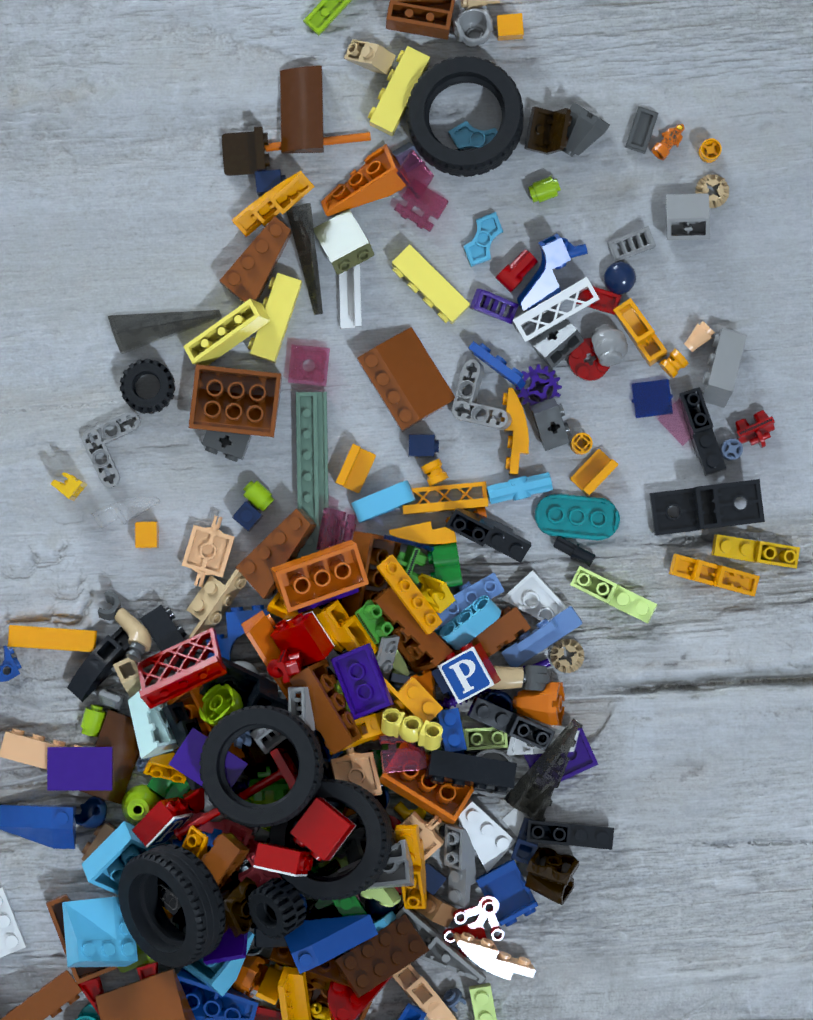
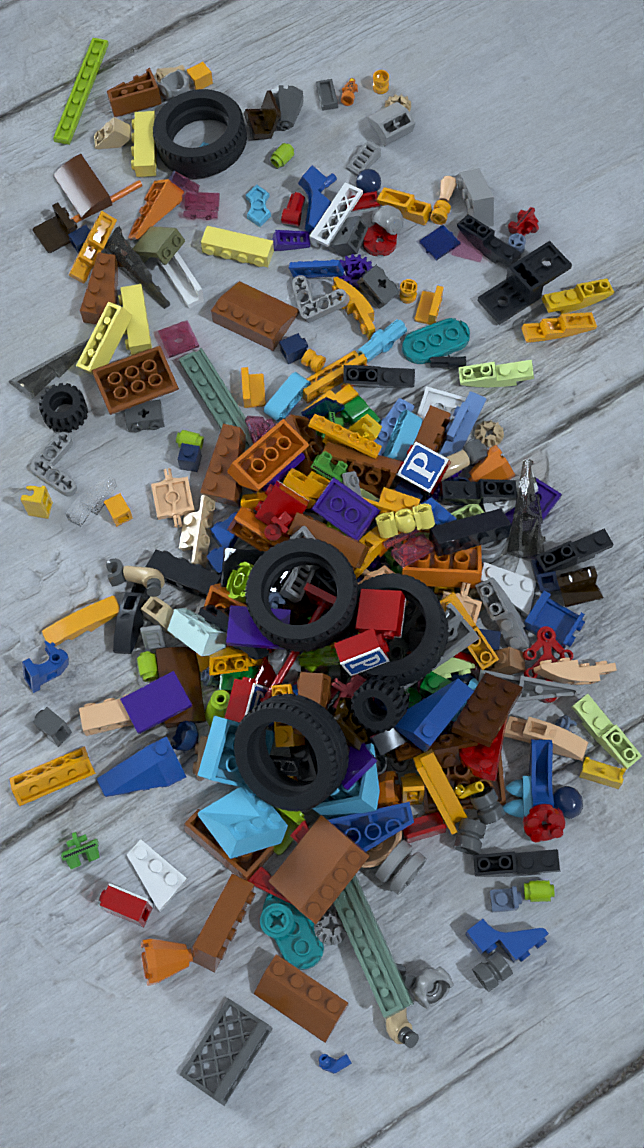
camera: 25 degrees left, 20 degrees down
(184, 679) = (205, 574): red fence -> none

